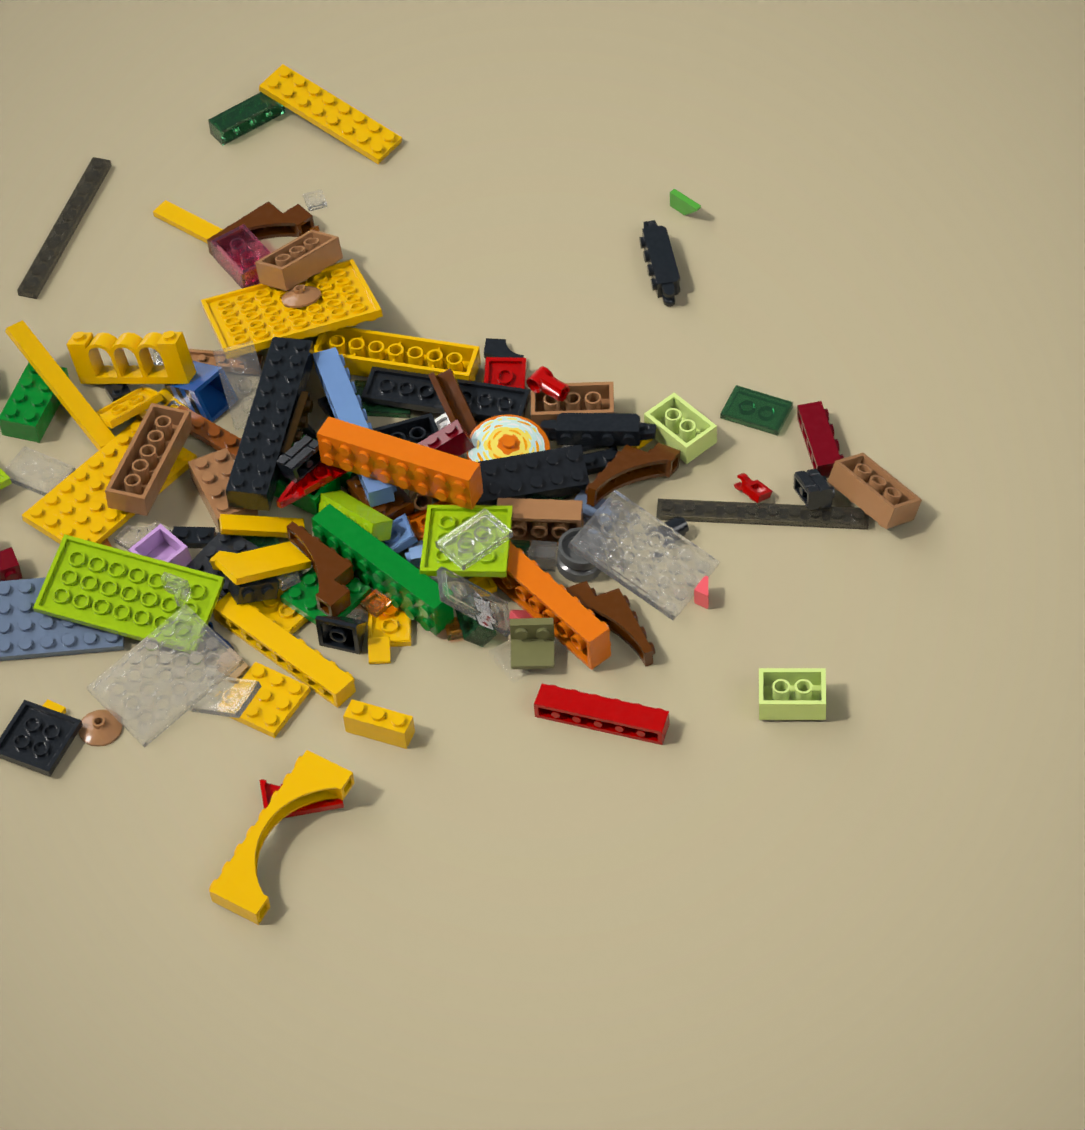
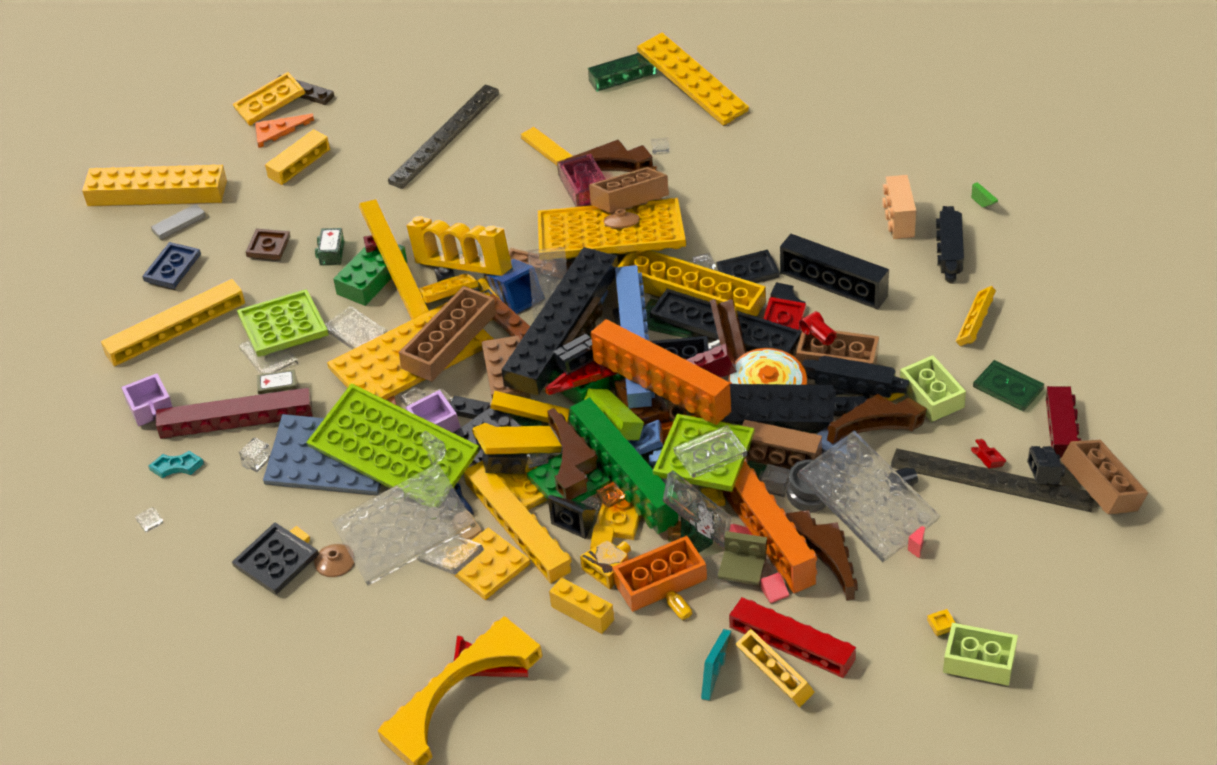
camera: 15 degrees right, 5 degrees down
(27, 371) = (370, 244): none -> dark red tile
(391, 674) = (601, 559): none -> torso
(401, 327) = (704, 260): none -> clear tile
(450, 675) = (659, 572): none -> orange brick
(453, 326) = (751, 267): none -> black tile
(476, 703) = (678, 605): none -> yellow piece
(532, 754) = (713, 663): none -> teal wing
(546, 316) = (834, 271): none -> black brick
(570, 667) = (774, 588): none -> coral slope
(593, 748) = (775, 668): none -> yellow brick
(598, 231) = (899, 207): none -> light nougat brick
(706, 340) = (976, 316): none -> yellow plate
(745, 670) = (940, 622): none -> yellow plate

